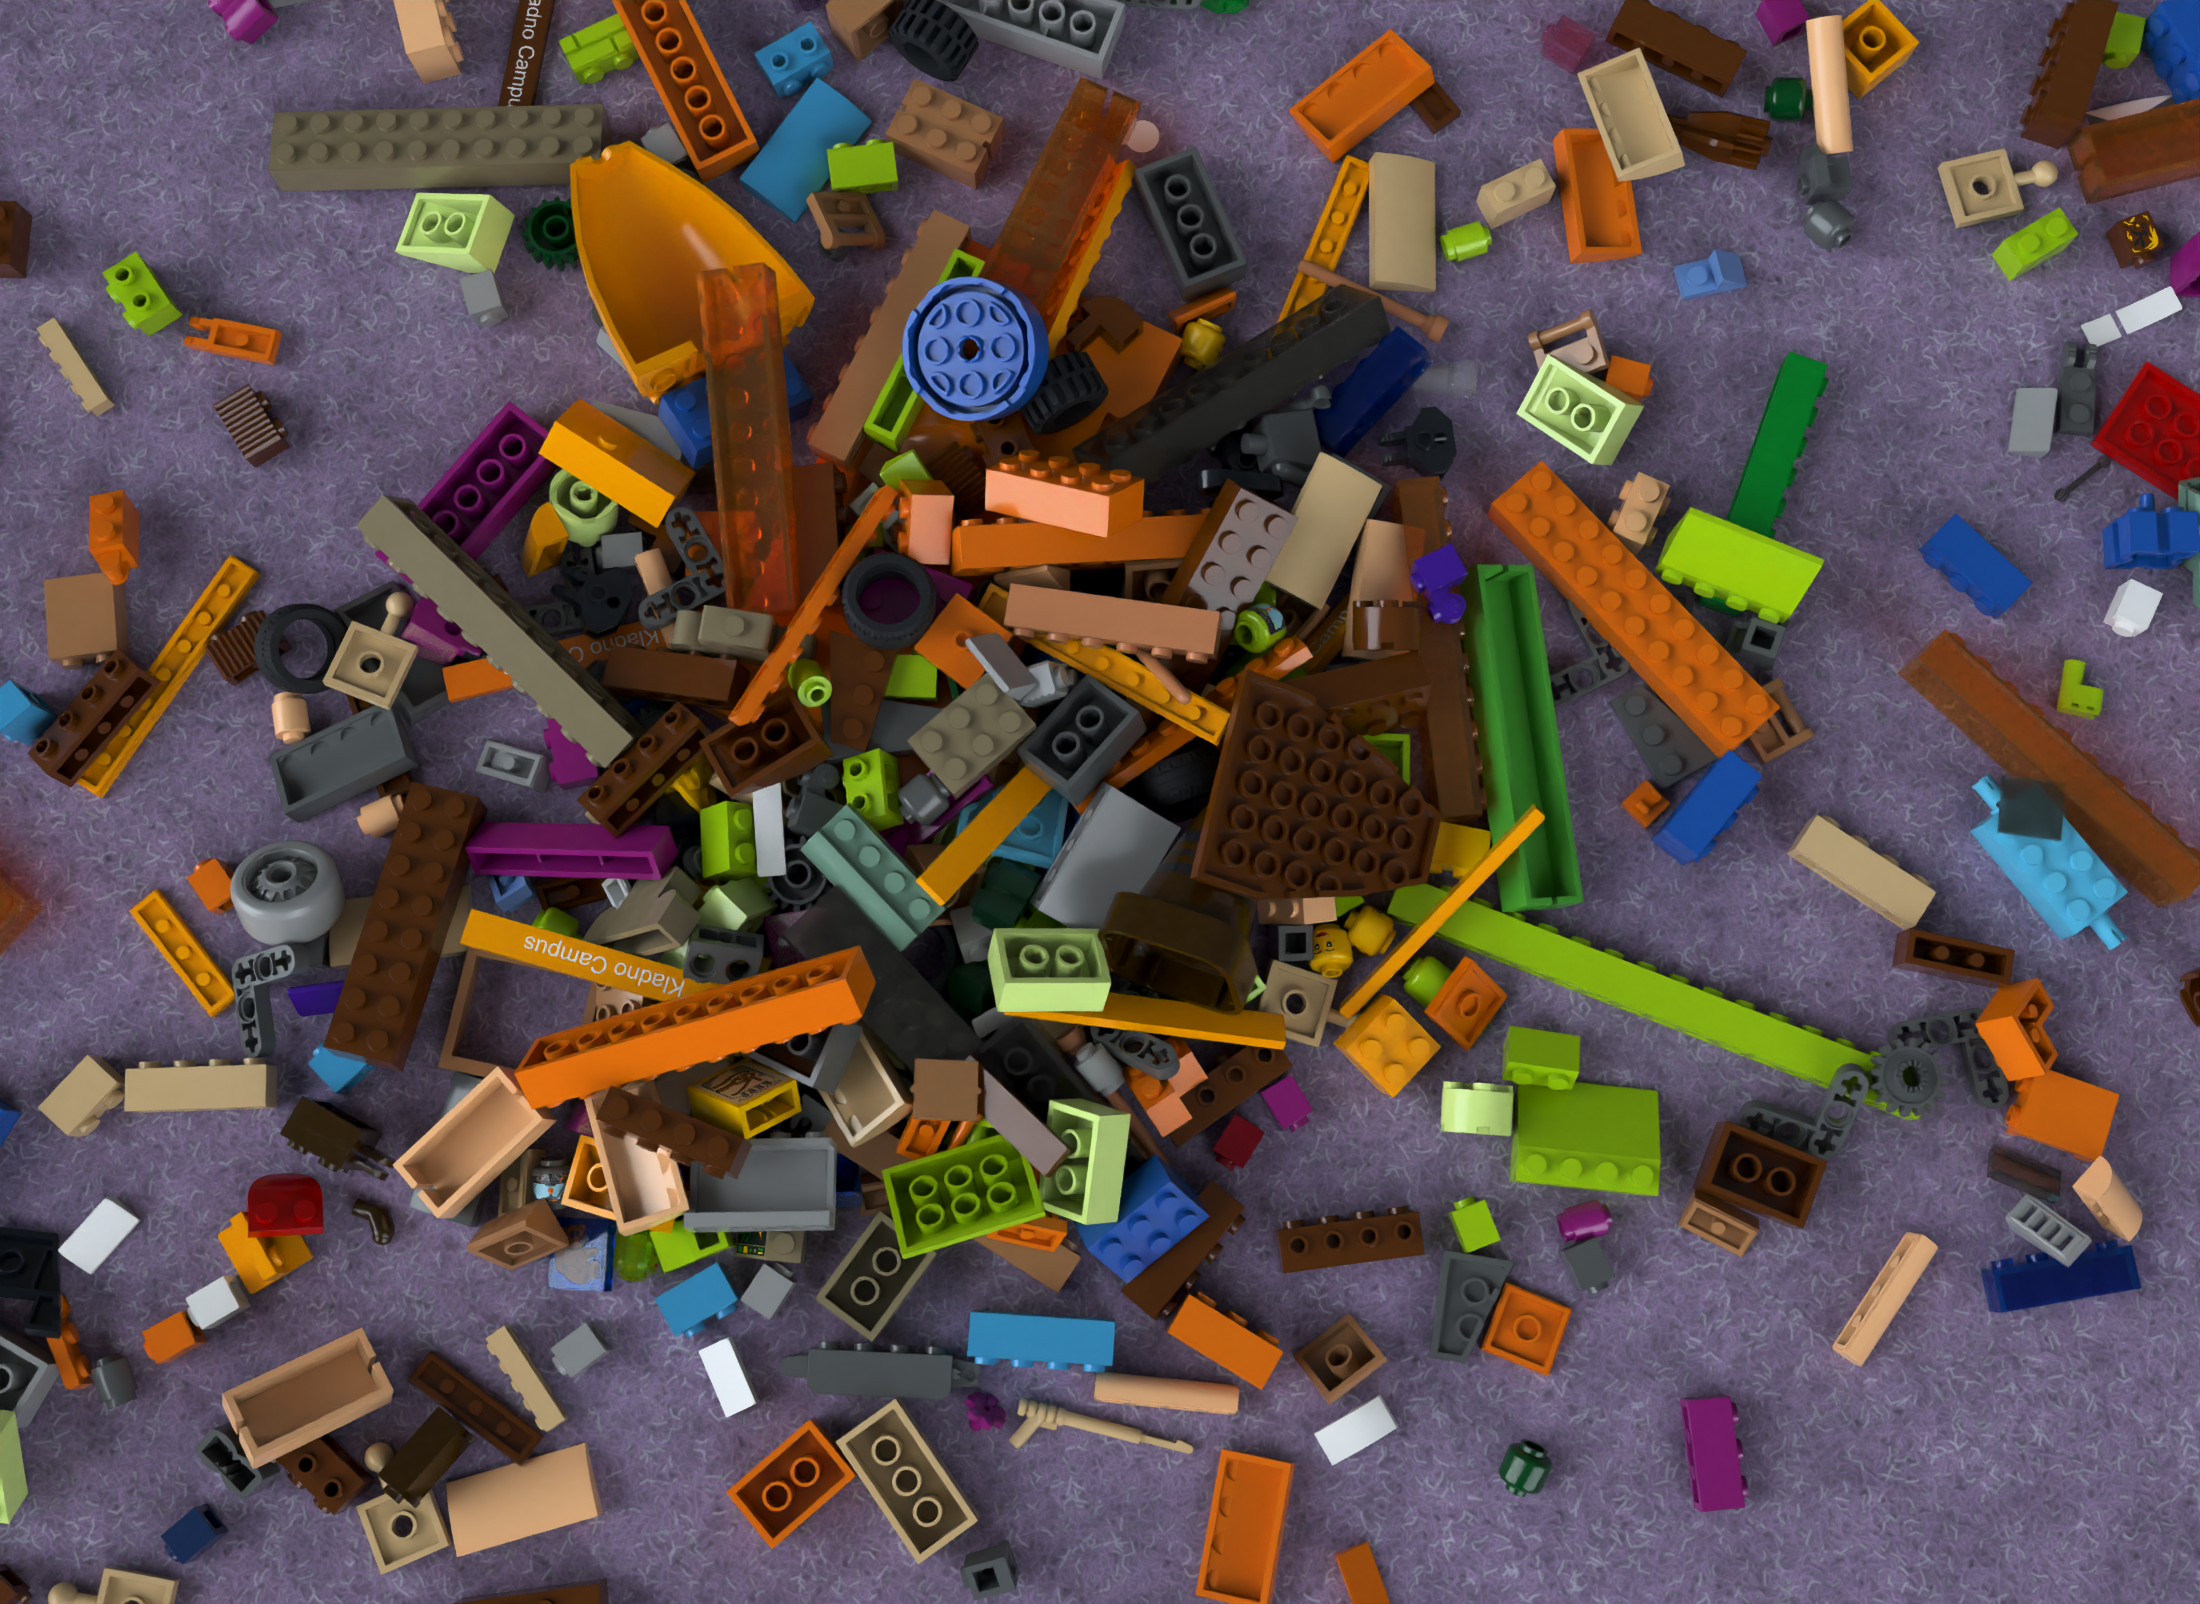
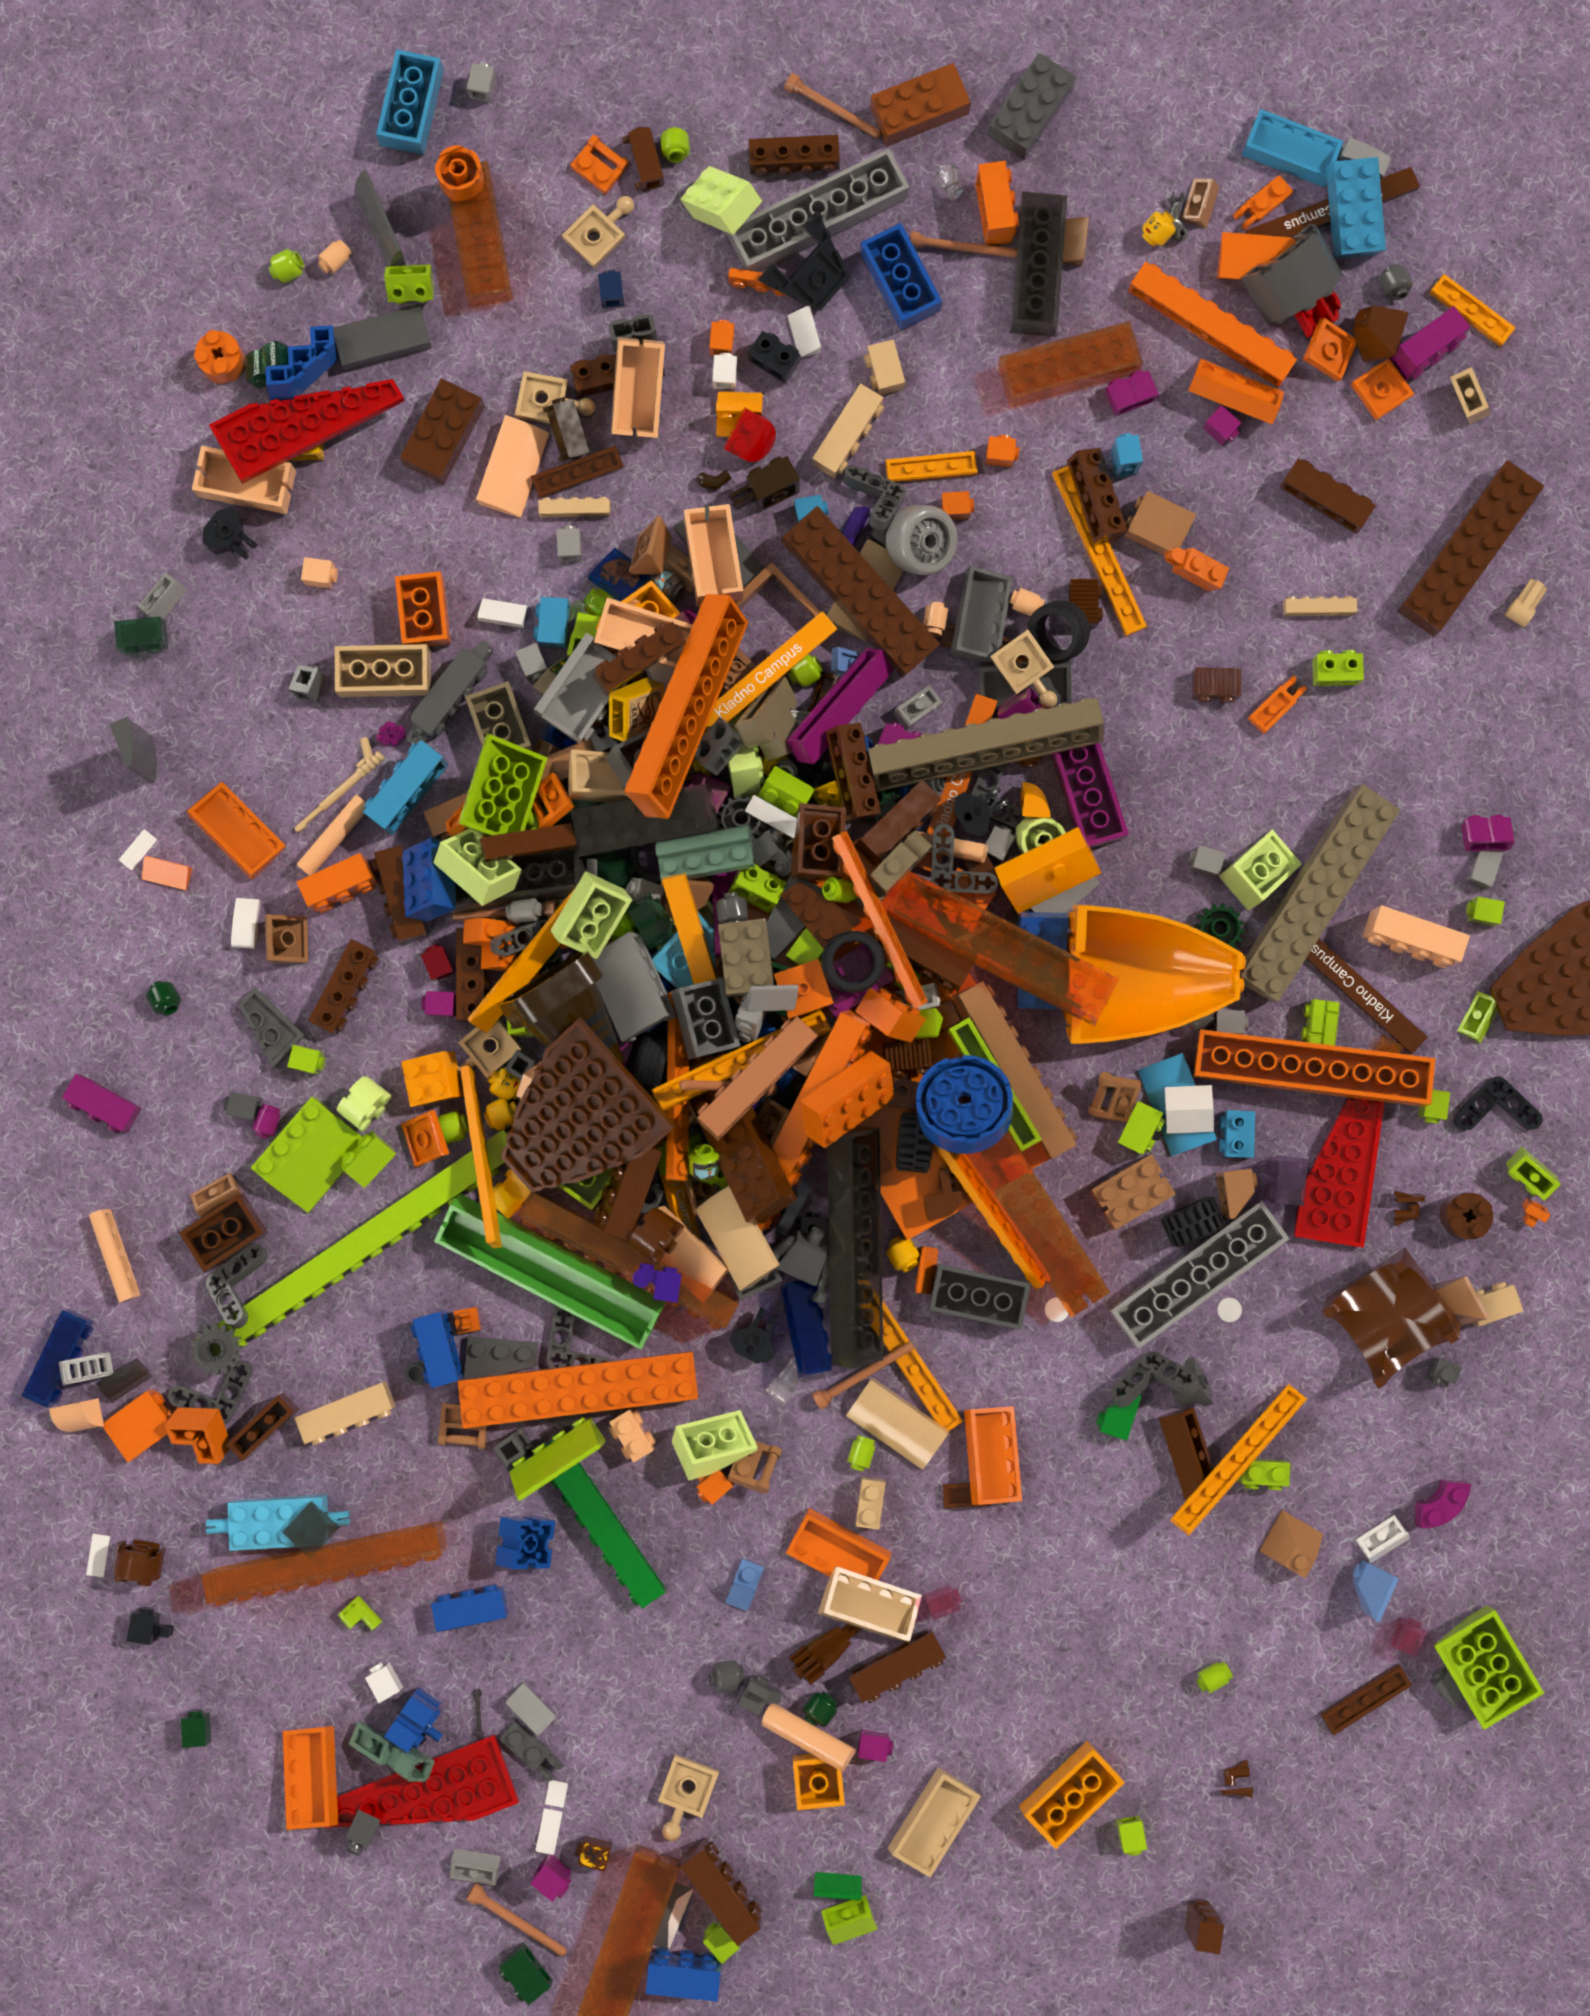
camera: 120 degrees right, 5 degrees up
(108, 876) = (1001, 451): none -> orange brick
(114, 1380) = (720, 295): dark grey brick -> none
(156, 1250) = (774, 356): none -> black brick
(800, 126) = (1189, 1109): none -> white slope
(945, 1090) = (564, 817): medium nougat piece -> none
(1526, 1329) = (234, 1050): orange tile -> none
(1751, 821) = (414, 1373): none -> dark grey plate
(1856, 548) = (525, 1542): none -> blue brick
(2034, 244) = (632, 1790): lime brick -> none

